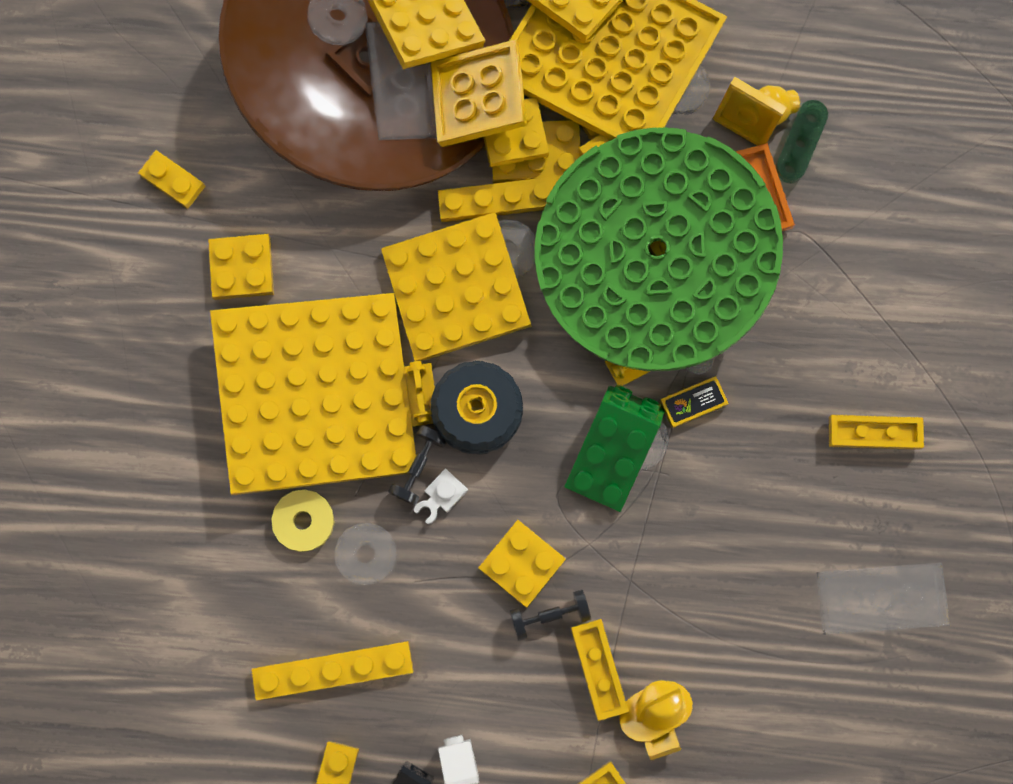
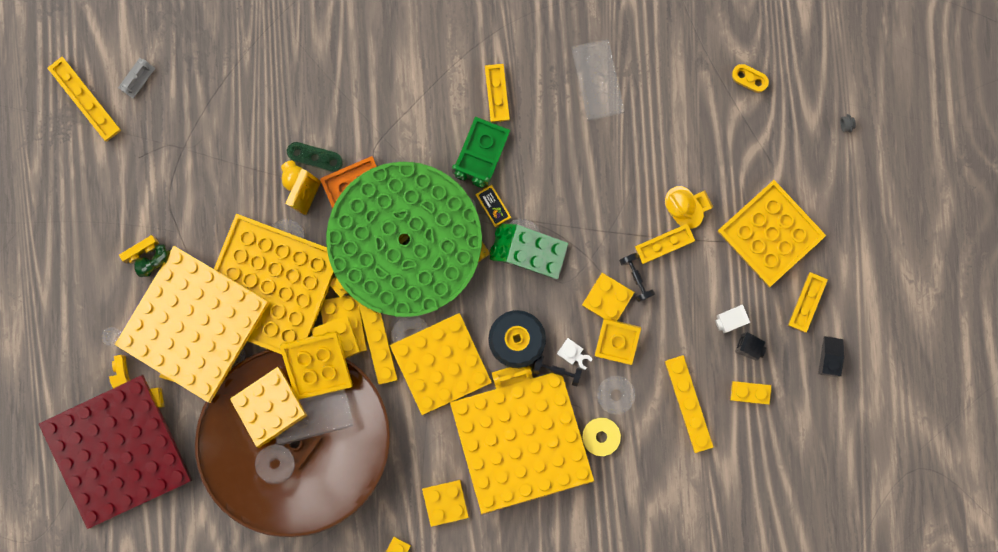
camera: 90 degrees left, 5 degrees up
(450, 567) = (617, 341): none -> yellow plate
(781, 392) = (480, 152): none -> green bracket

